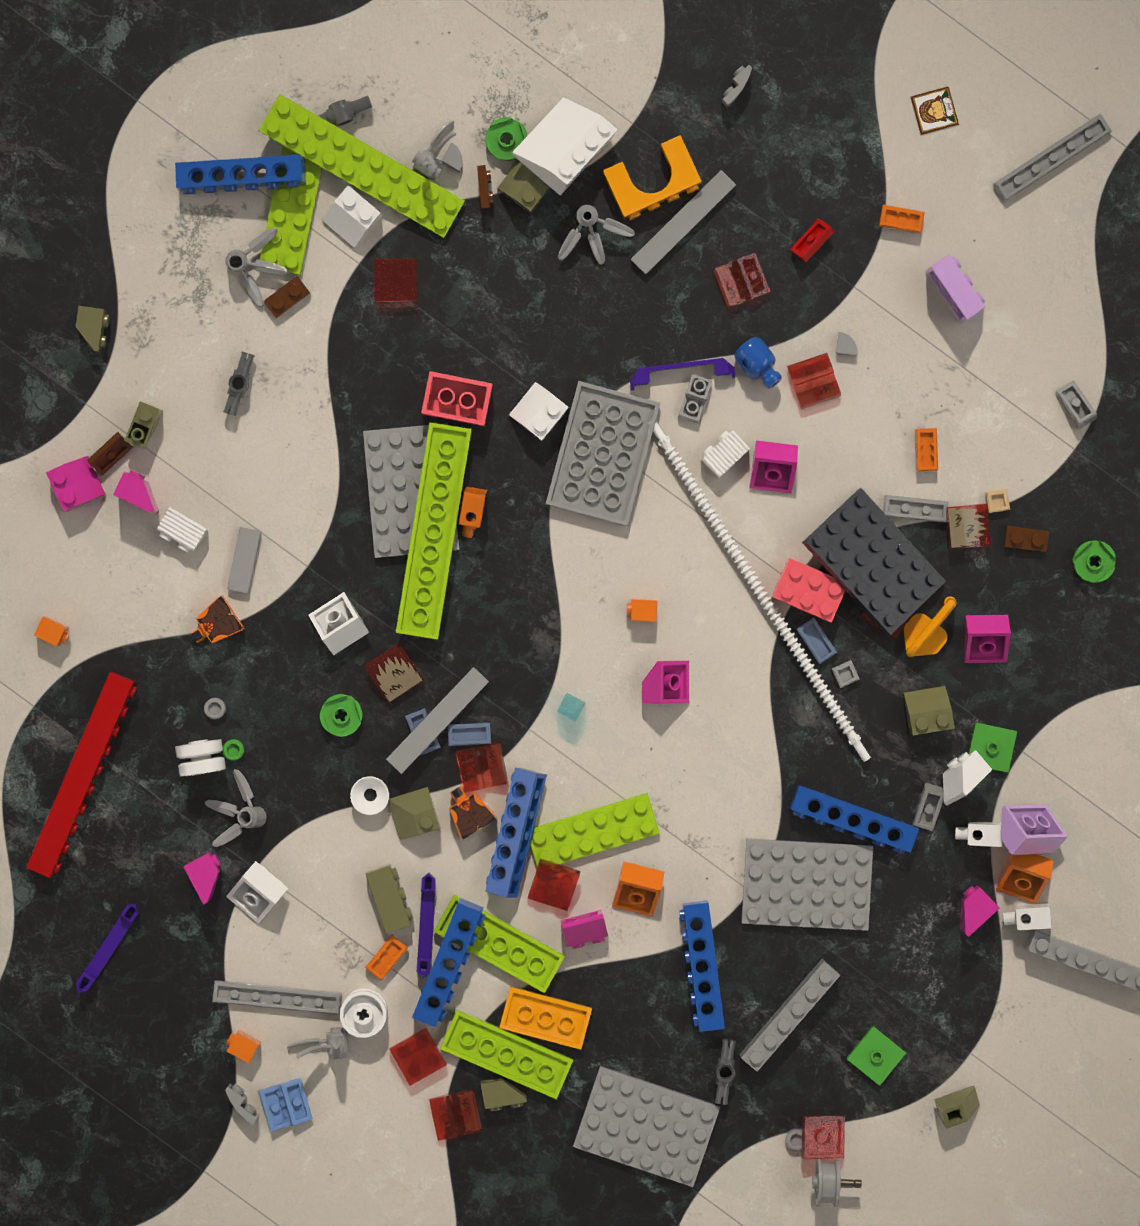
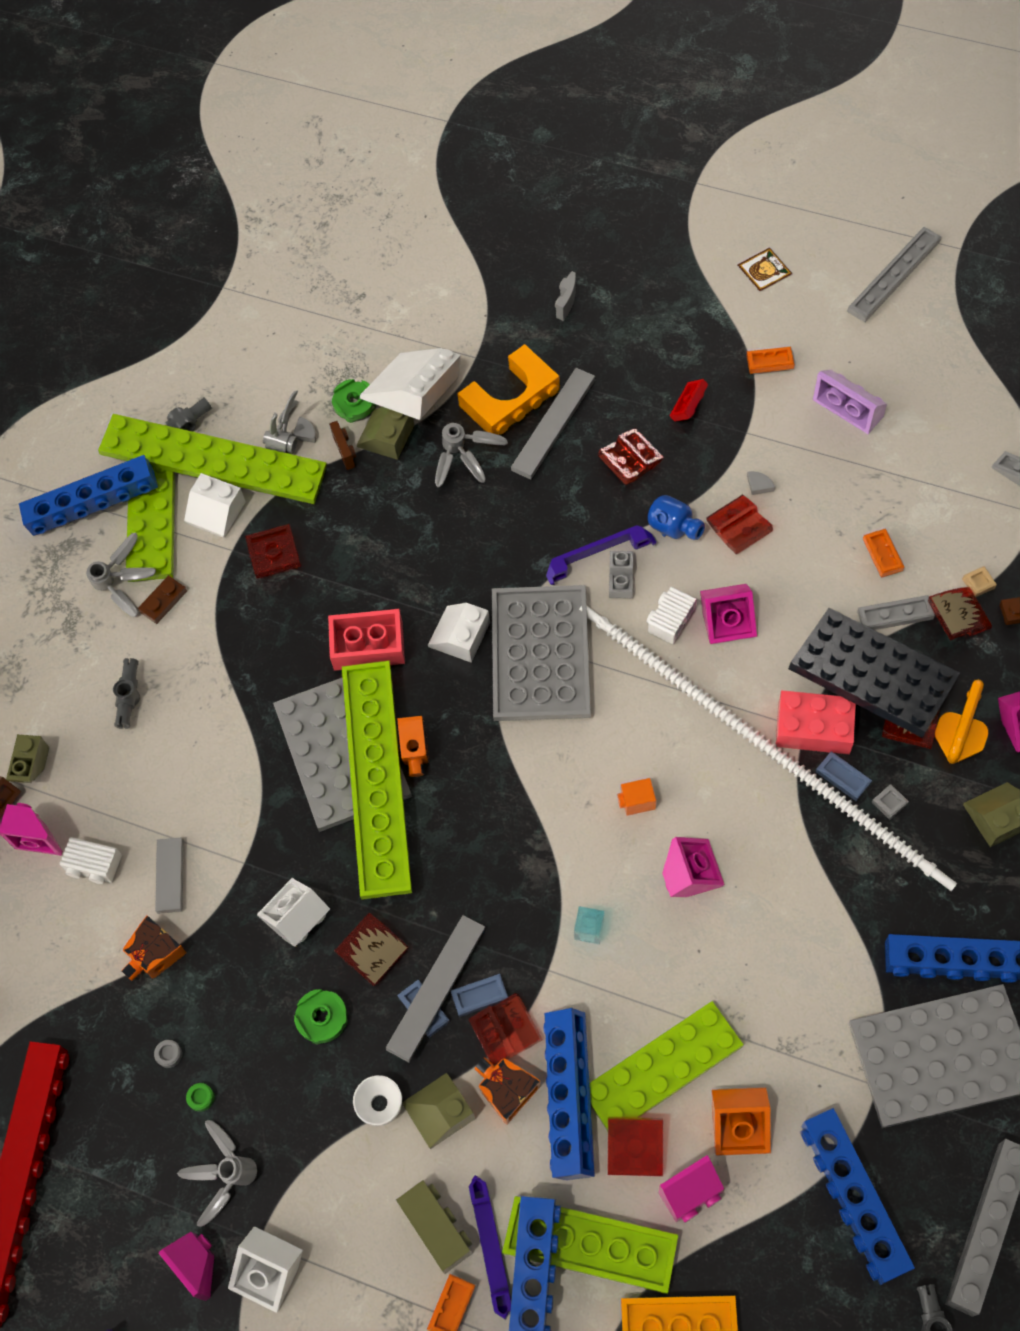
camera: 10 degrees left, 25 degrees down
(200, 757) = (158, 1112): white wheel -> none

